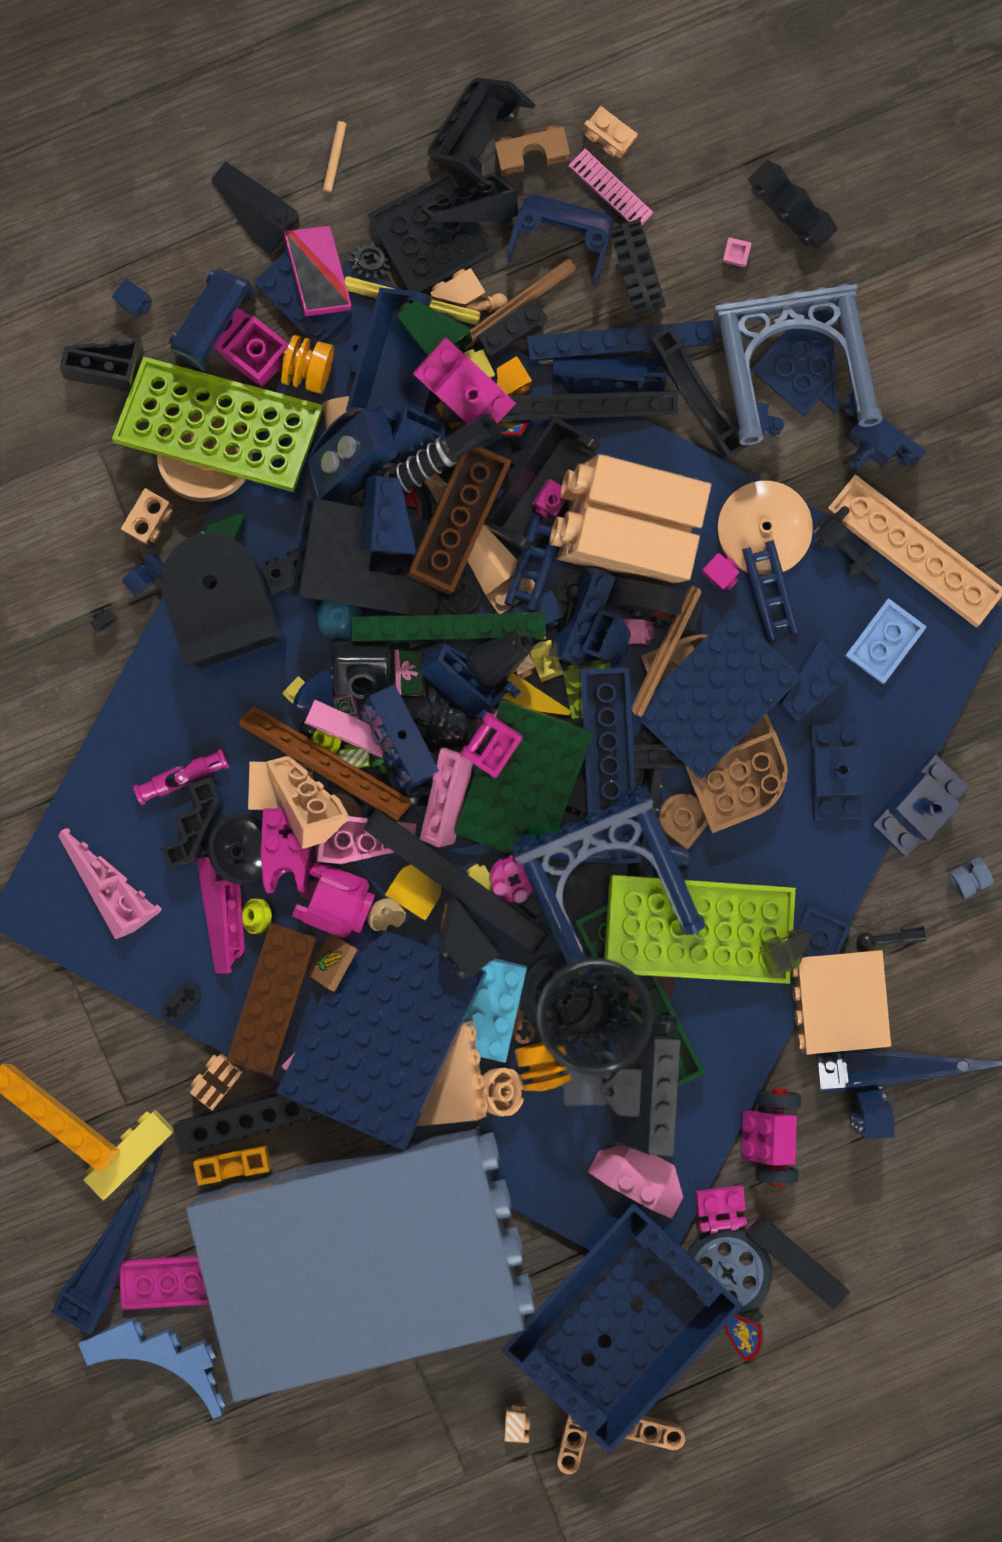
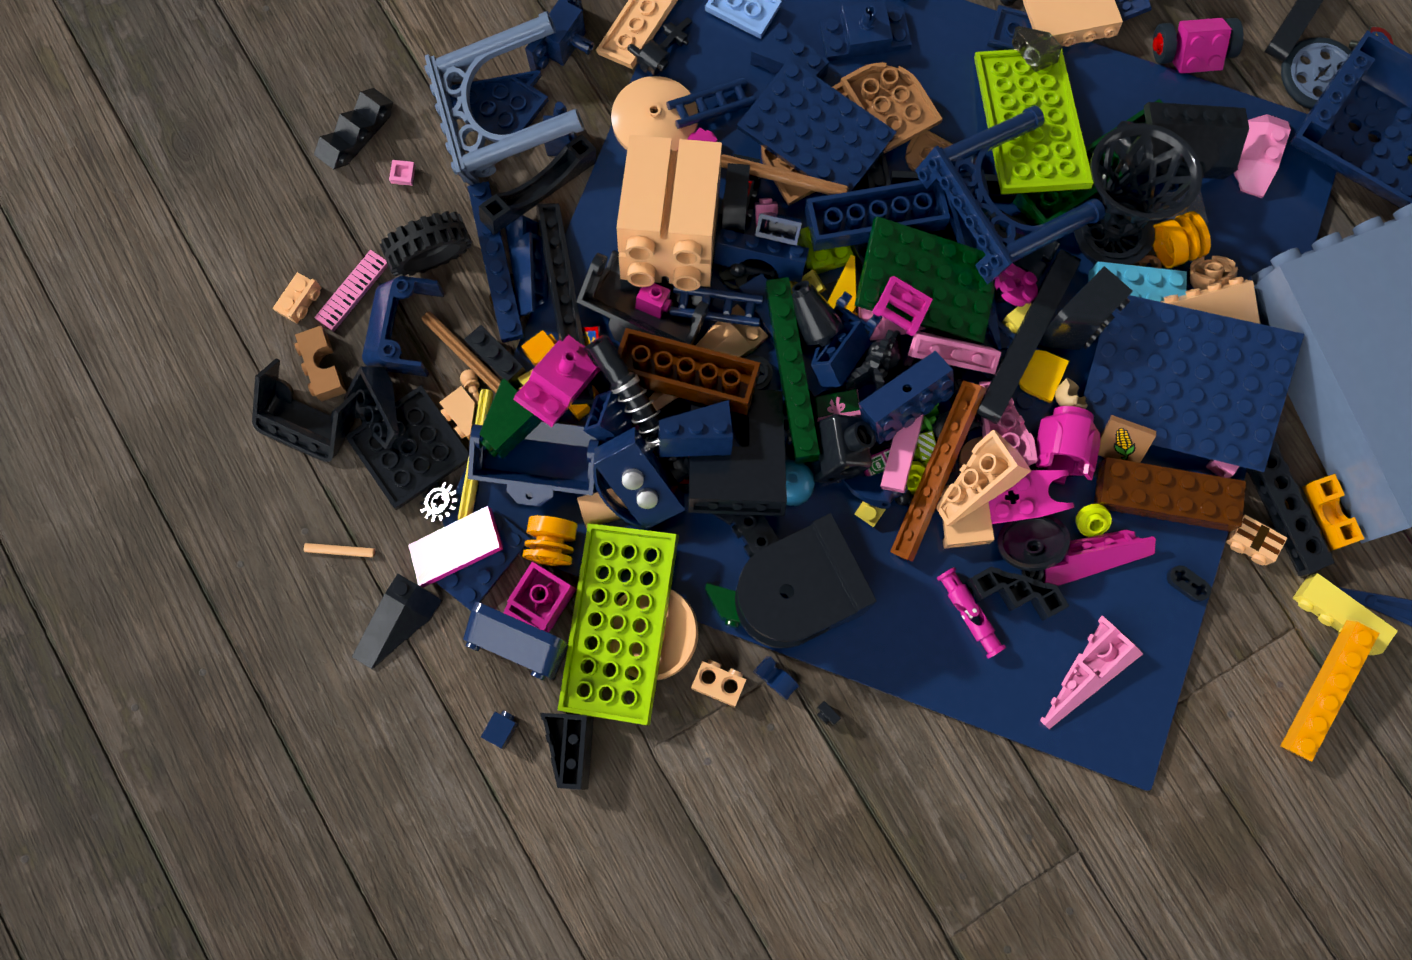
camera: 100 degrees left, 10 degrees down
(720, 1201) = (1263, 86): dark pink plate -> none

